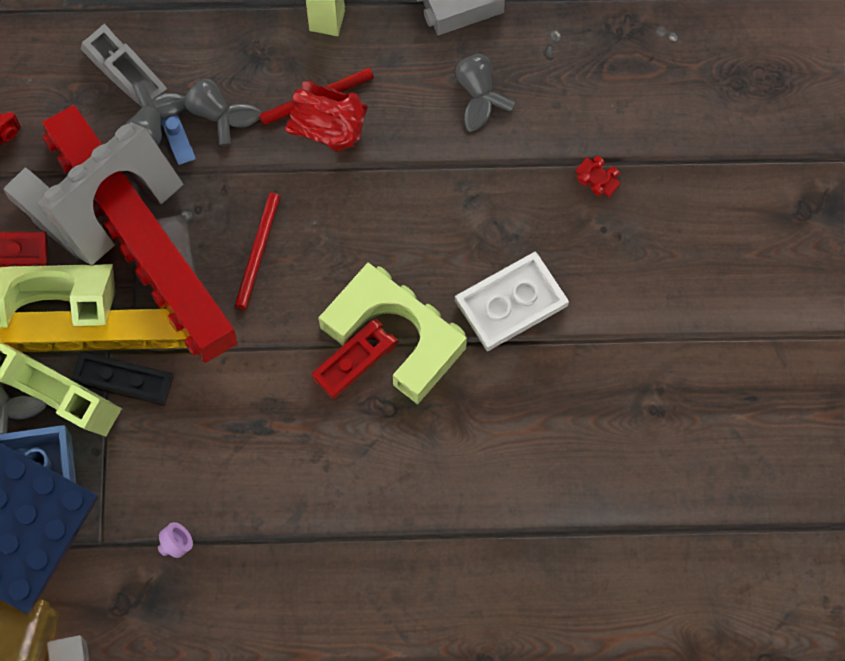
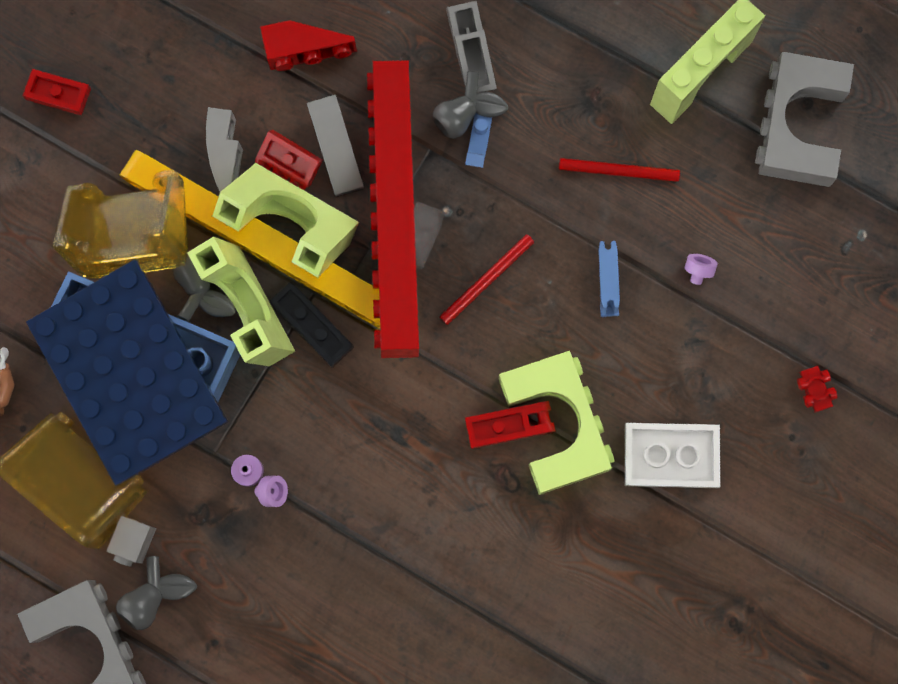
camera: 35 degrees right, 10 degrees up
(71, 201) = (354, 149): light grey arch -> none
(145, 543) = (253, 474): none -> lavender tile
(208, 102) = (523, 123): dark grey piece -> none
(327, 116) = (614, 197): red piece -> none
(365, 189) = (609, 280): none -> medium blue piece
(437, 134) = (700, 267): none -> lavender tile
(476, 76) = (766, 237): dark grey piece -> none

